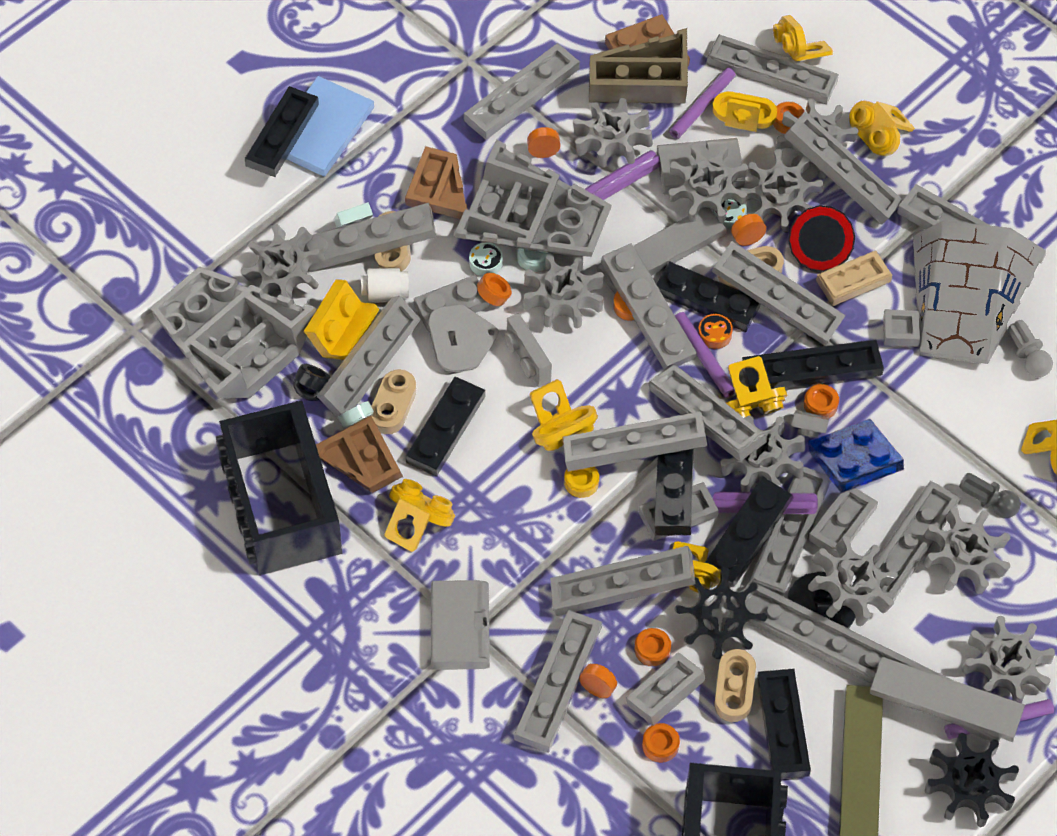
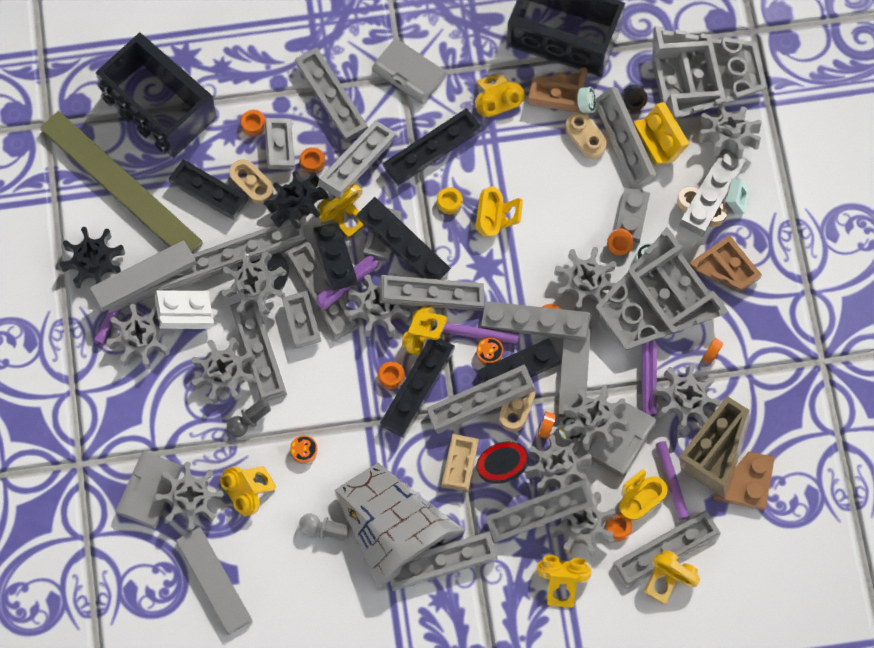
camera: 130 degrees right, 10 degrees up
(281, 131) = (836, 194): black plate -> none
(330, 127) = (831, 231): light blue tile -> none
(385, 283) = (671, 181): white brick -> none
(445, 426) = (545, 152): black plate -> none
(470, 337) = (598, 207): light grey piece -> none
(521, 91) = (766, 369): light grey plate -> none
(533, 359) = (554, 228): light grey plate -> none
(535, 533) = (432, 146): none -> black plate
(598, 680) = (313, 113): orange tile -> none
(634, 441) = (440, 231): light grey plate -> none
(810, 424) = (379, 351): light grey plate -> none
(856, 455) = (335, 358): clear blue plate -> none
(901, 328) = (401, 461): light grey plate -> none
(942, 636) = (183, 309): none -> white plate
(971, 424) = (303, 449): none -> orange tile

